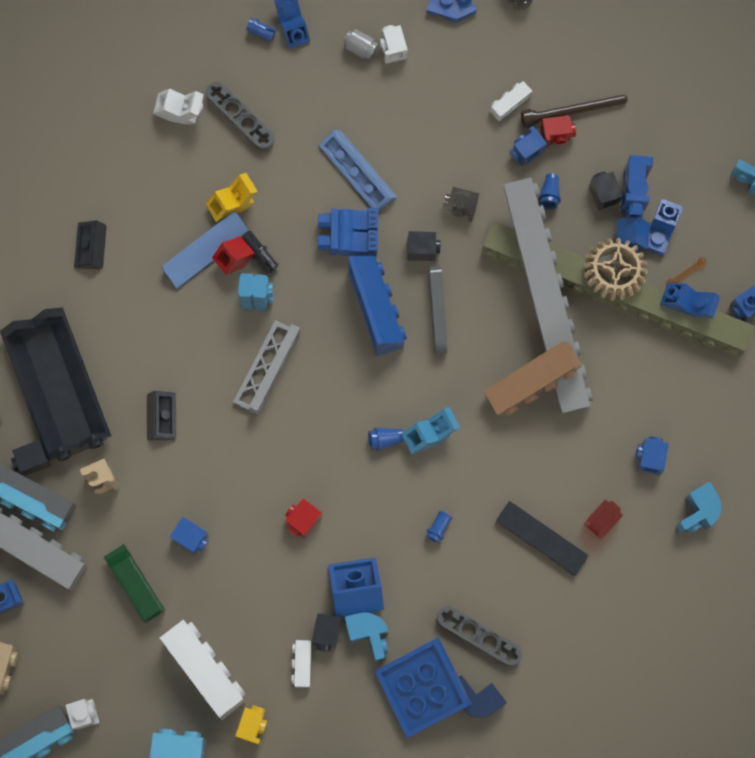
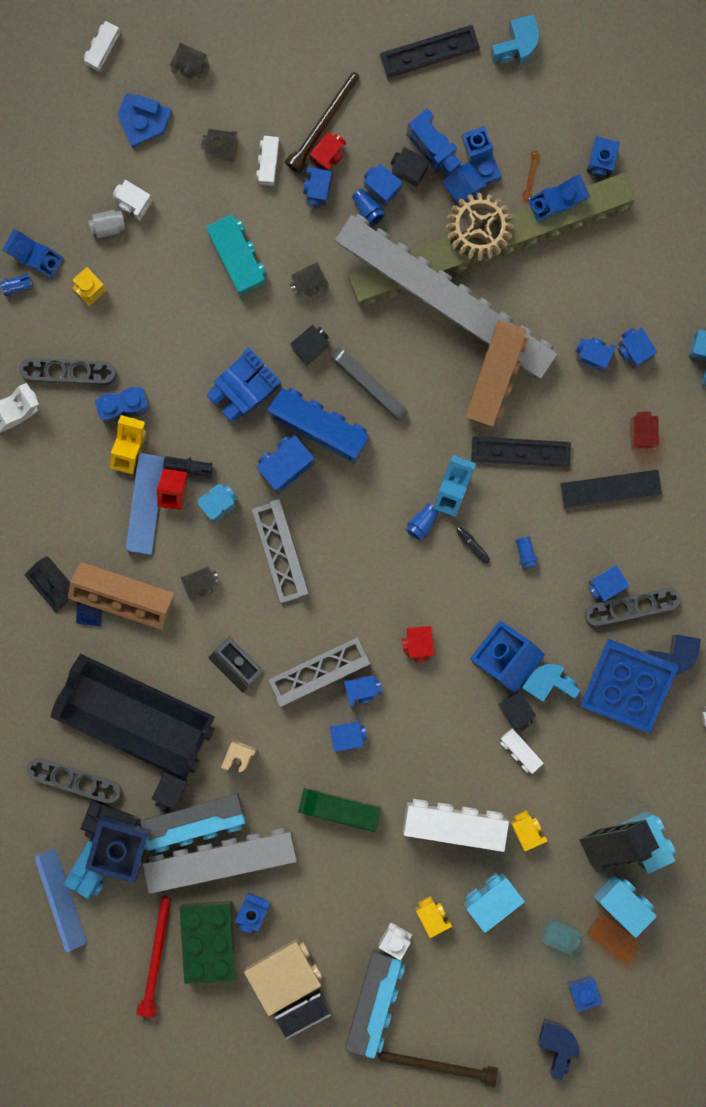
camera: 40 degrees left, 10 degrees up
(98, 286) = (88, 615): none -> clear blue slope
(125, 721) = (432, 916): none -> yellow brick
(128, 294) = (120, 595): none -> medium nougat brick
(190, 336) = (200, 583): none -> clear smoke brick
(208, 480) = (317, 683): none -> light grey fence
(231, 513) = (363, 689): none -> blue brick
(260, 171) = (129, 402): none -> blue brick
(308, 73) = (88, 286): none -> yellow brick
(326, 308) = (285, 463): none -> blue piece
(357, 170) = (201, 329): medium blue slope -> none
(406, 480) = (469, 541): none -> black piece
(429, 142) = (237, 254): none -> teal brick
(476, 602) = (608, 584): none -> blue brick
(487, 68) = (226, 151): none -> clear smoke brick
(501, 453) = (520, 451): none -> black tile
(575, 184) = (382, 183): none -> blue brick
(618, 432) = (594, 353): none -> blue brick
(692, 128) = (429, 51): none -> black tile

